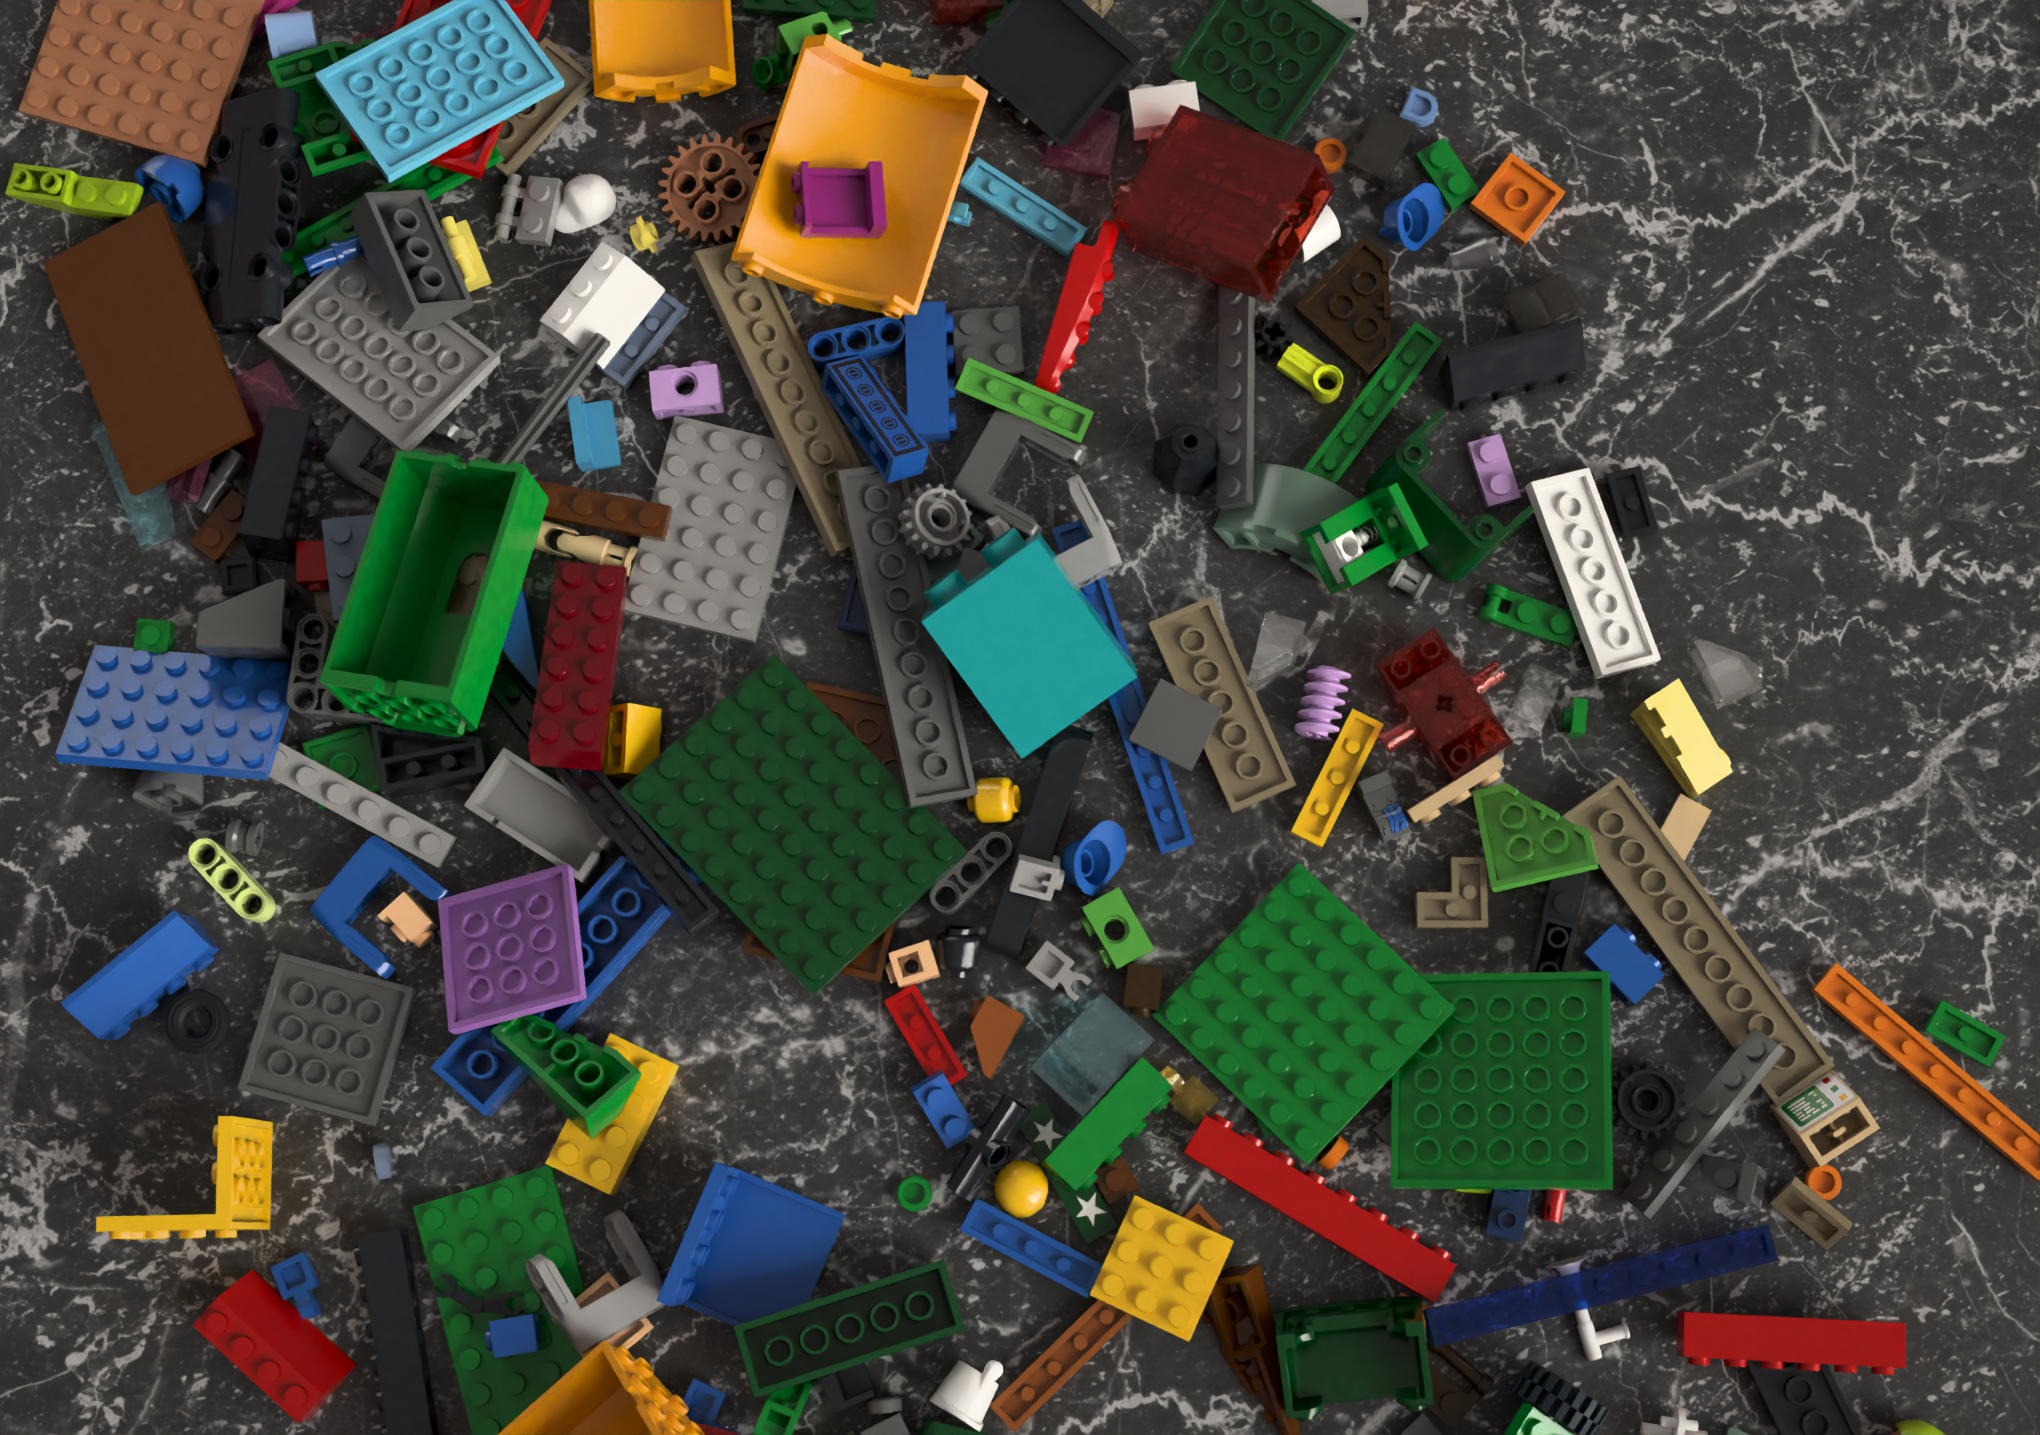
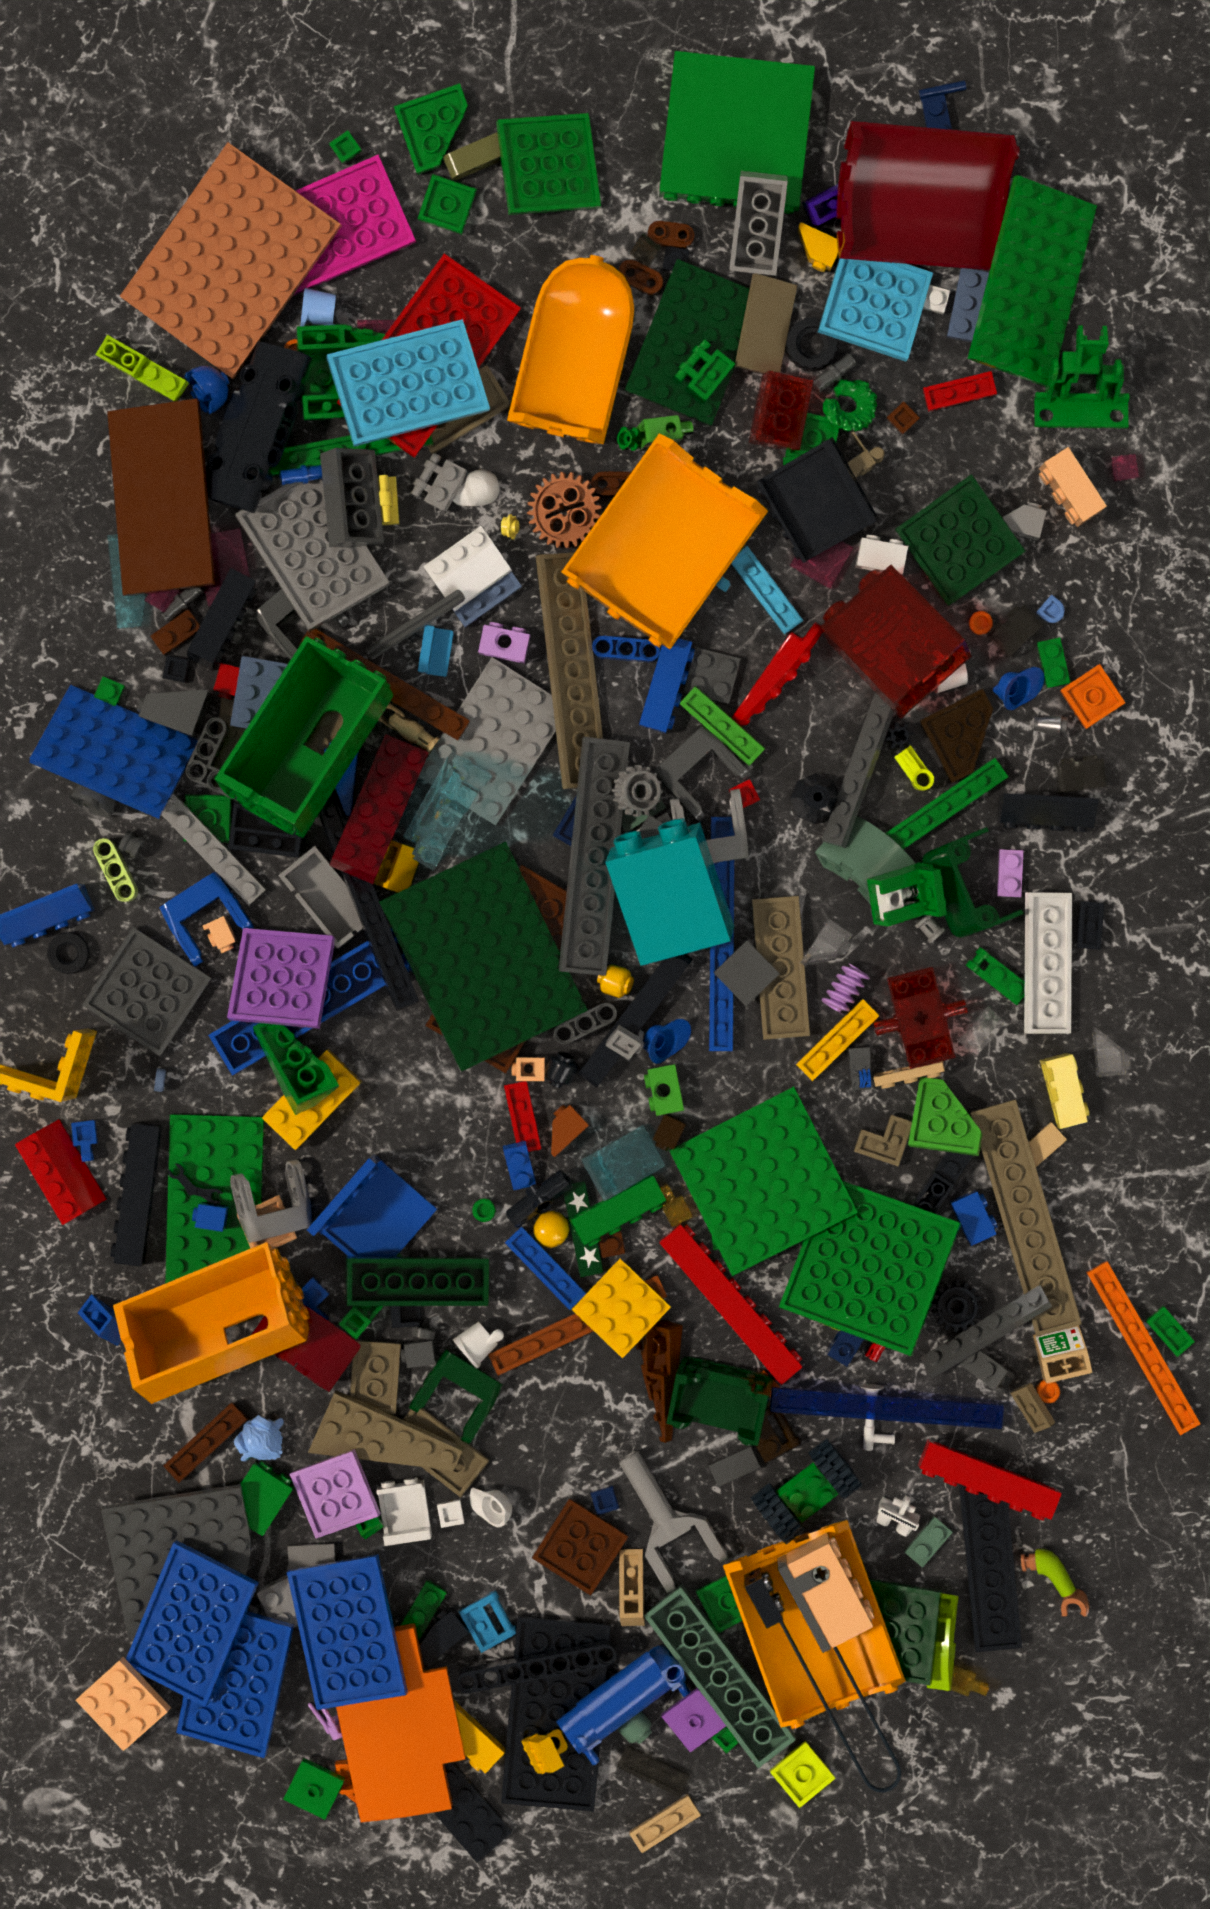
camera: 20 degrees right, 10 degrees up
(670, 599) = (444, 808): none -> clear light blue panel
(839, 201) = (645, 554): magenta panel -> none
(874, 418) = (620, 707): blue brick -> none
(1053, 968) = (617, 1100): light grey plate -> none
(1094, 481) = (748, 793): none -> red plate
(1333, 1153) = (751, 1273): orange tile -> none
(1574, 718) = (1002, 1052): green plate -> none

